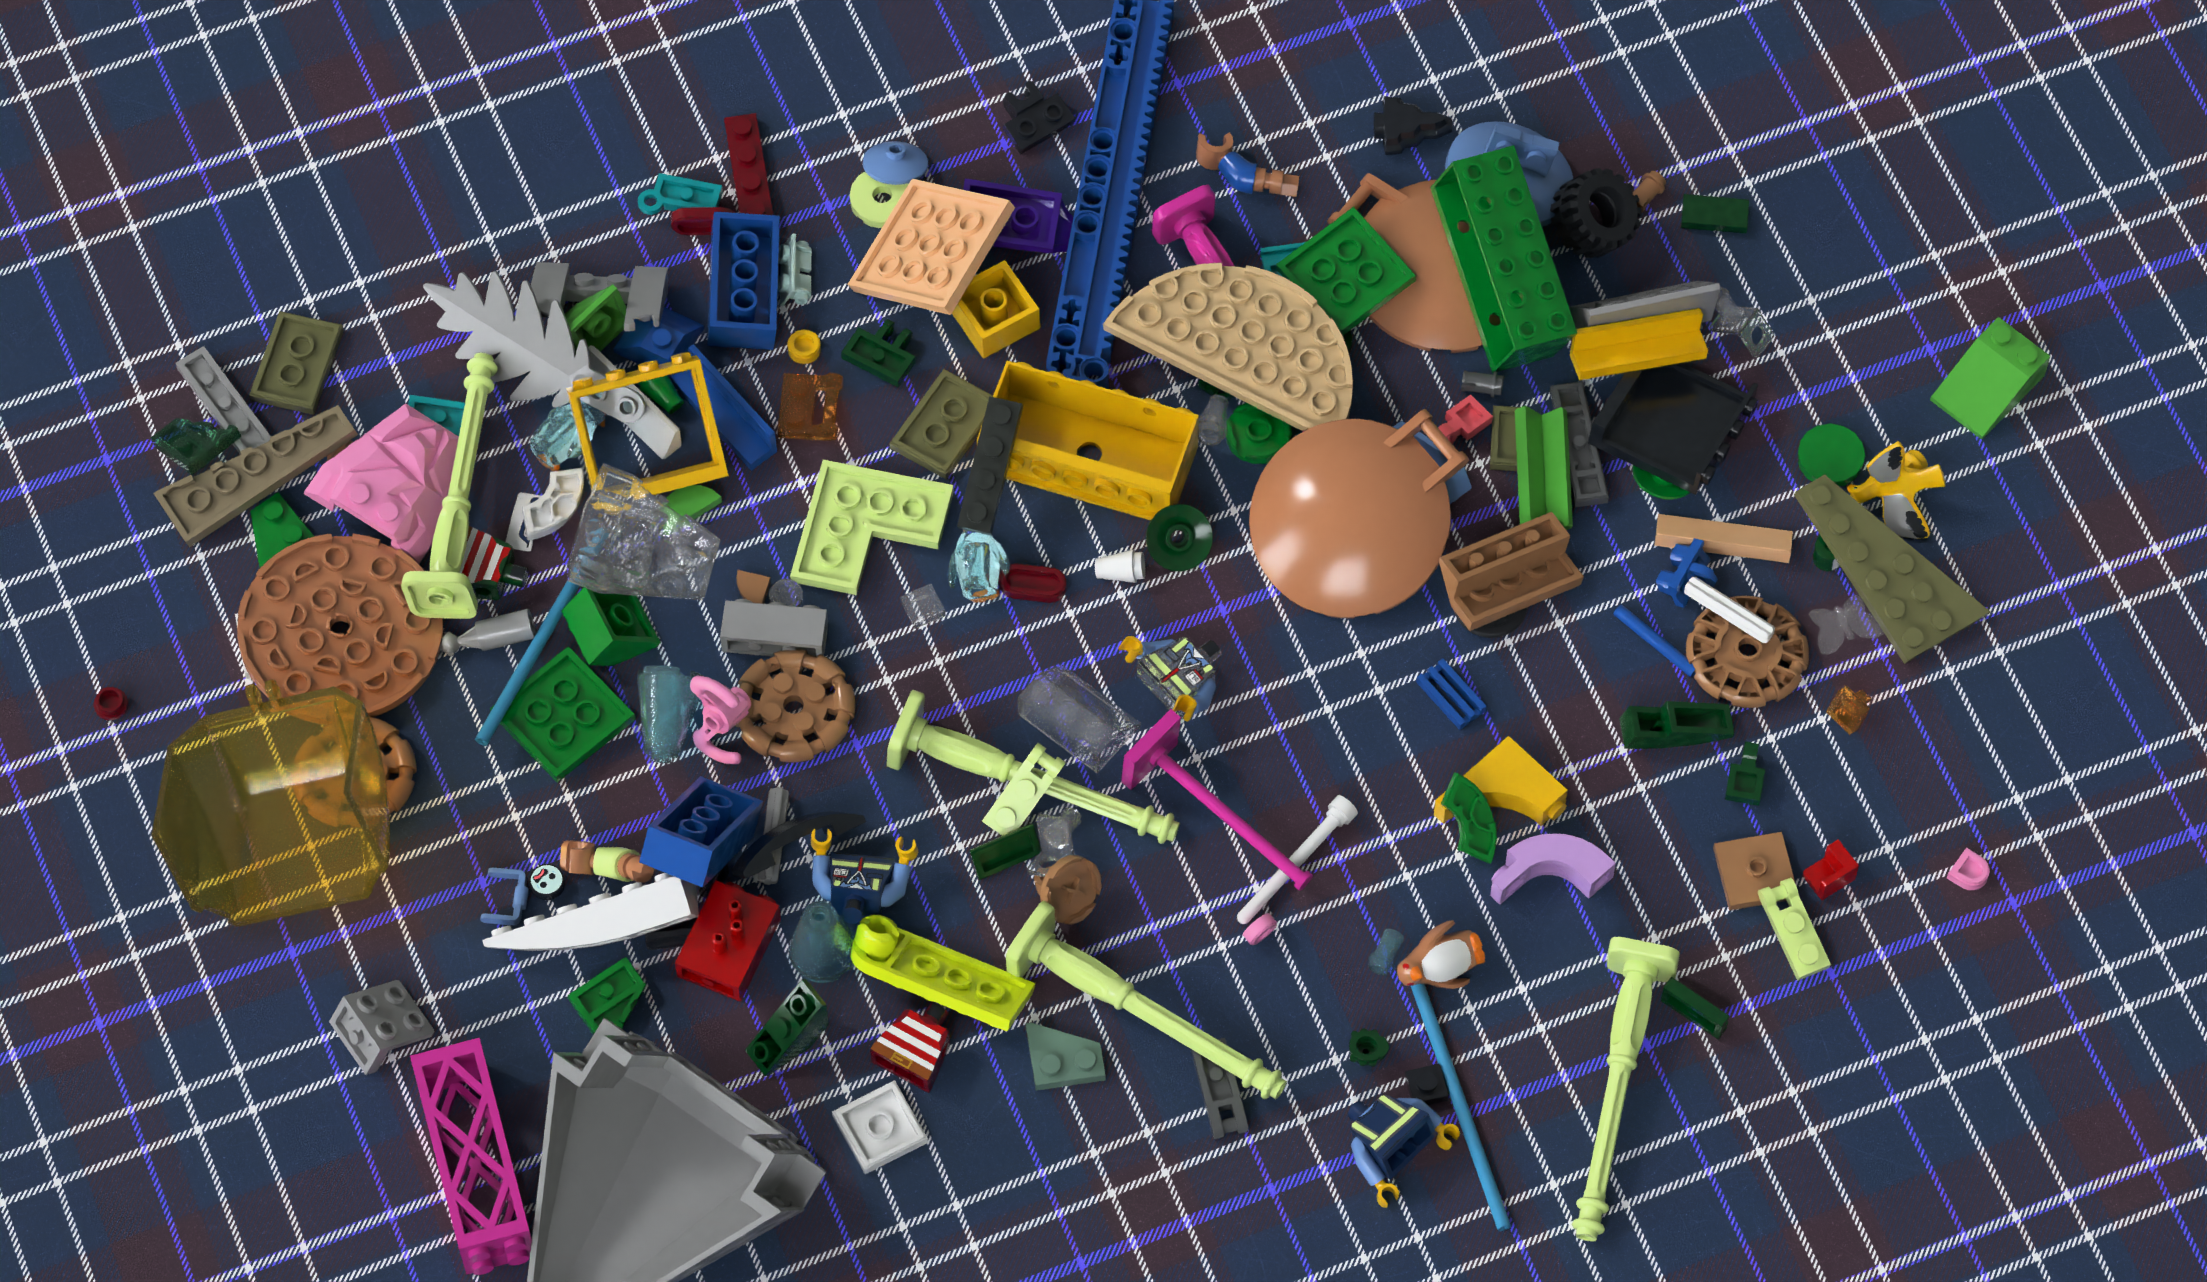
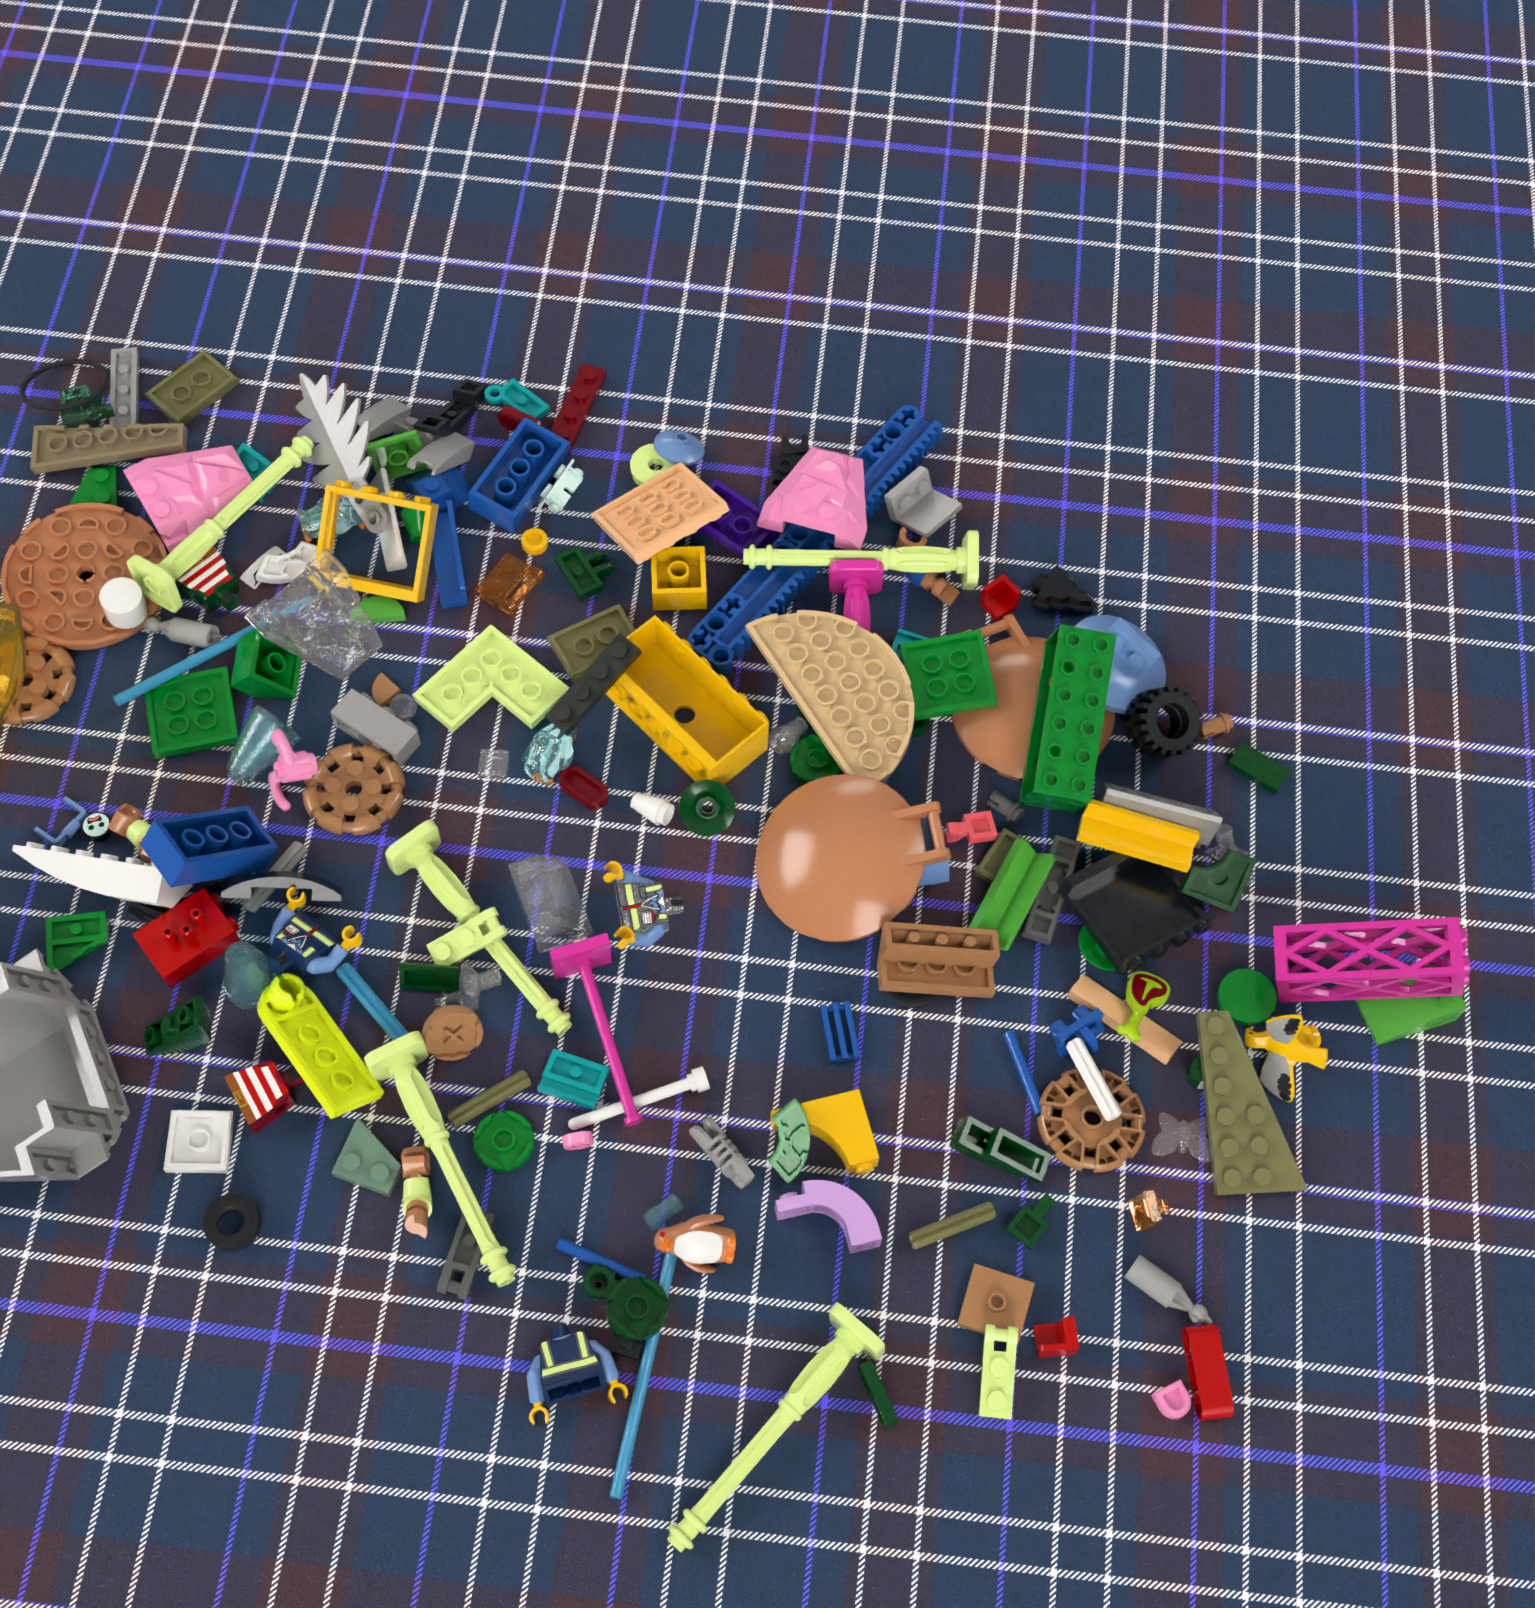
camera: 25 degrees right, 0 degrees up
(147, 468) = (70, 405): none -> black piece
(414, 634) = (123, 603): none -> white piece
(620, 240) = (465, 402): none -> black slope
(964, 907) = (370, 1001): none -> dark azure axle
(973, 1202) = (245, 1235): none -> black tyre
(1095, 142) = (821, 494): none -> bright pink wedge
(1132, 1056) = (416, 1189): none -> nougat piece
(1144, 935) = (488, 1098): none -> olive axle
(1185, 969) = (504, 1141): none -> green tile
(1202, 101) = (918, 505): none -> light grey bracket
(1217, 874) = (573, 1079): none -> teal plate
(1290, 140) = (903, 559): none -> yellowish green piece
(1344, 1030) = (592, 1257): none -> blue bar
(1347, 162) = (1000, 597): none -> red panel
(1409, 866) = (722, 1152): none -> light grey hinge
(1420, 1049) = (636, 1308): none -> dark green tile
(1671, 820) = (951, 1225): none -> olive axle
(1728, 503) = (1142, 993): none -> lime piece
(1744, 351) = (1221, 881): none -> dark green tile
(1906, 773) = (1164, 1289): none -> light grey wheel
(1941, 377) = (1368, 981): none -> dark pink piece
(1987, 827) = (1207, 1372): none -> red beam

